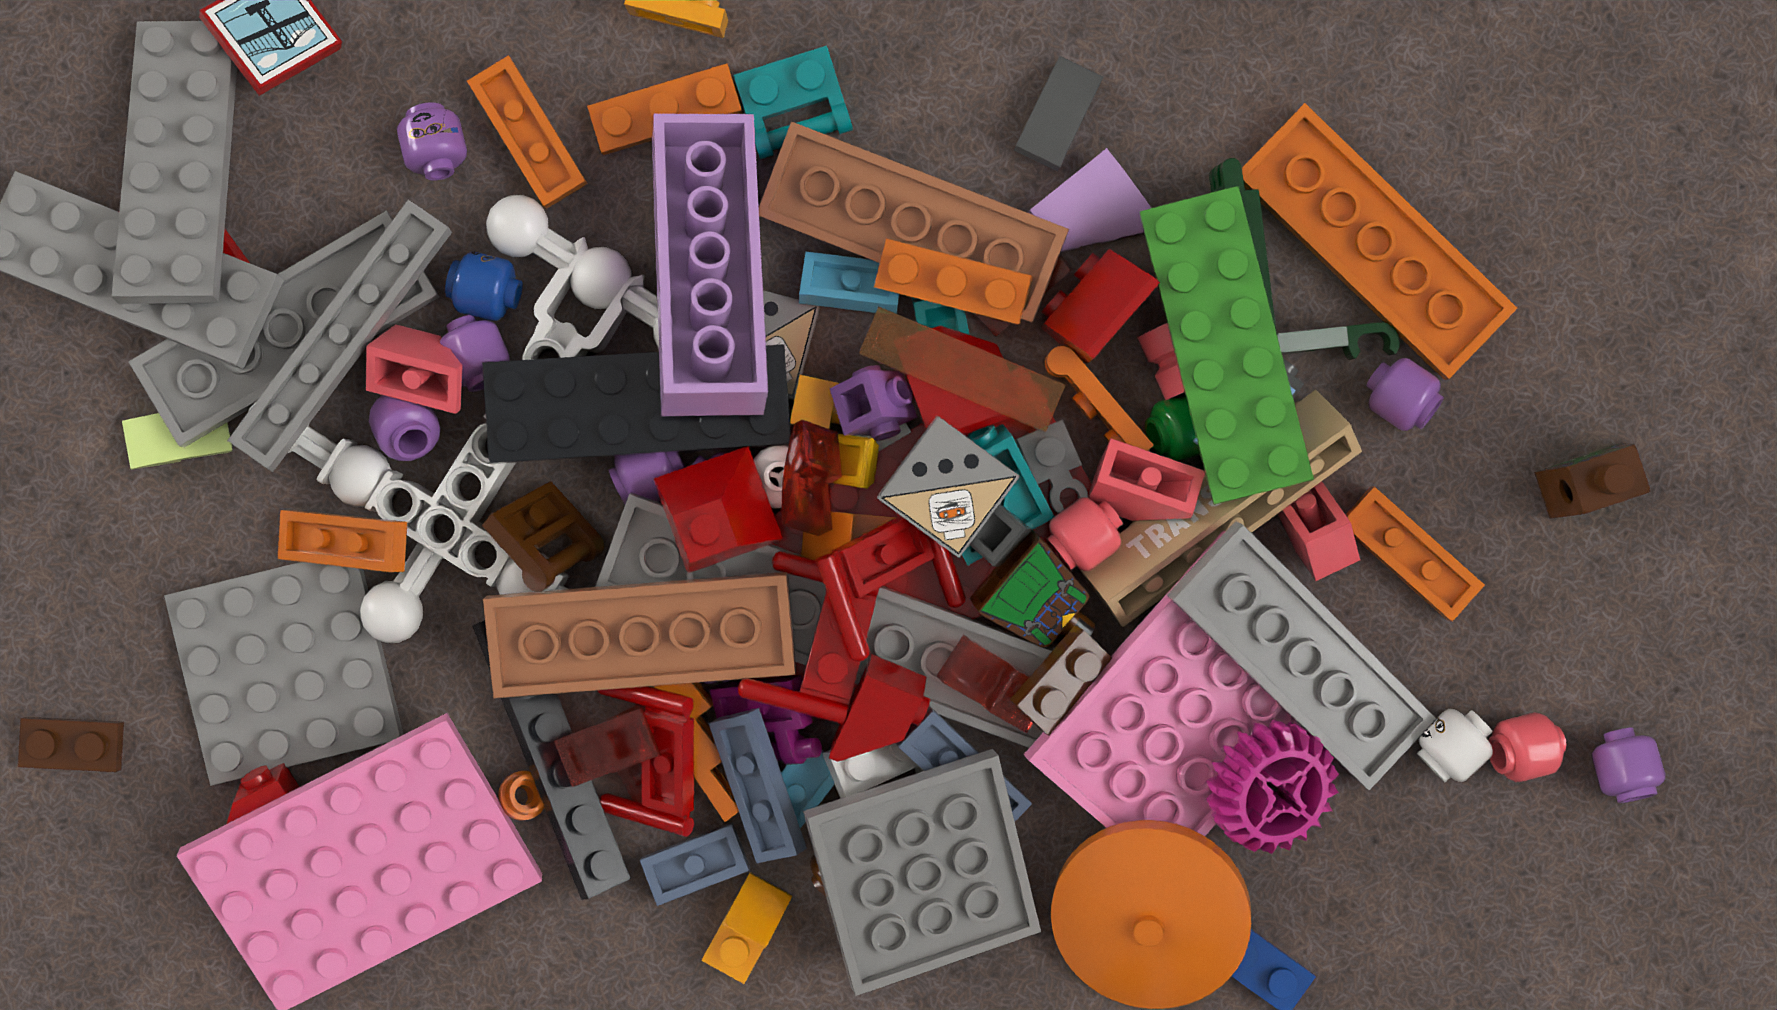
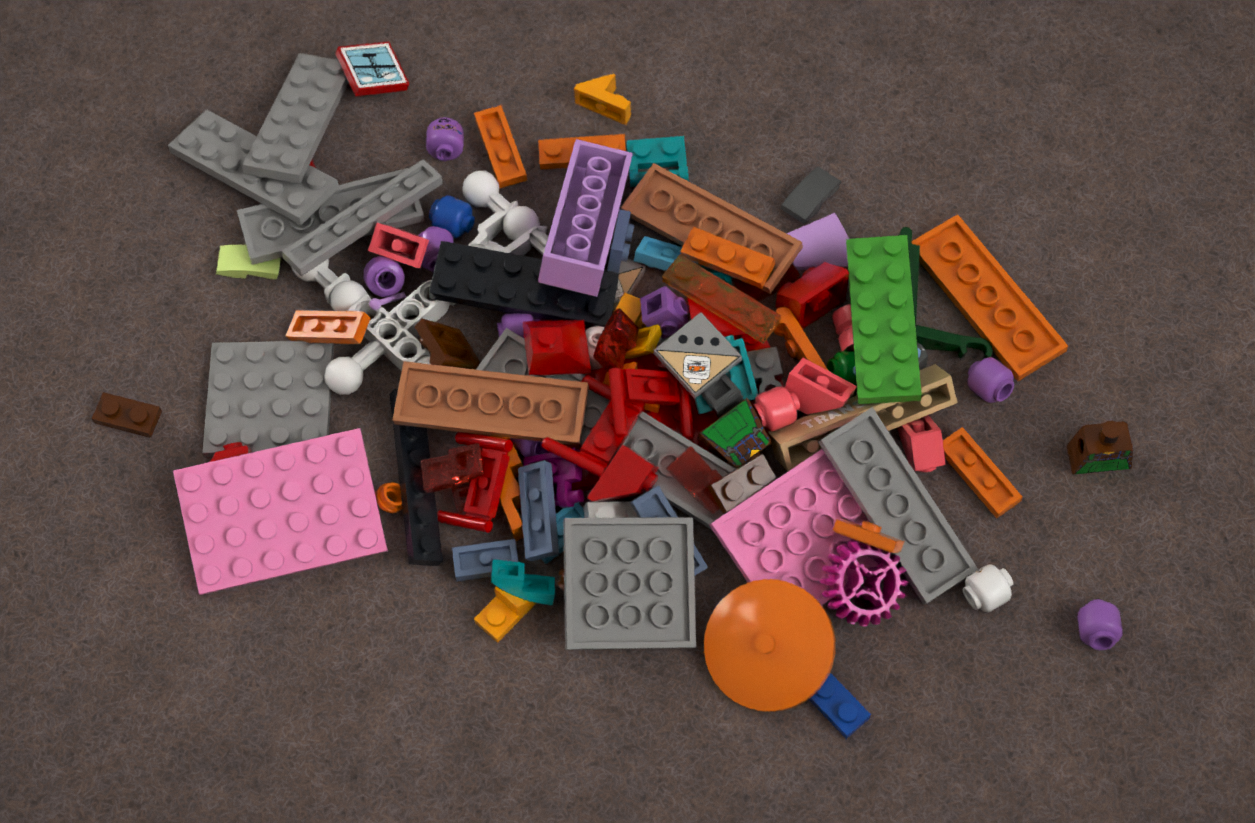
camera: 15 degrees right, 25 degrees down
(407, 494) = (375, 303): none -> lavender hinge
(761, 899) = (511, 578): none -> teal slope
(775, 296) = (619, 248): none -> sand blue plate
(1271, 728) = (868, 534): none -> orange plate
(1527, 747) = (1034, 599): coral head -> none

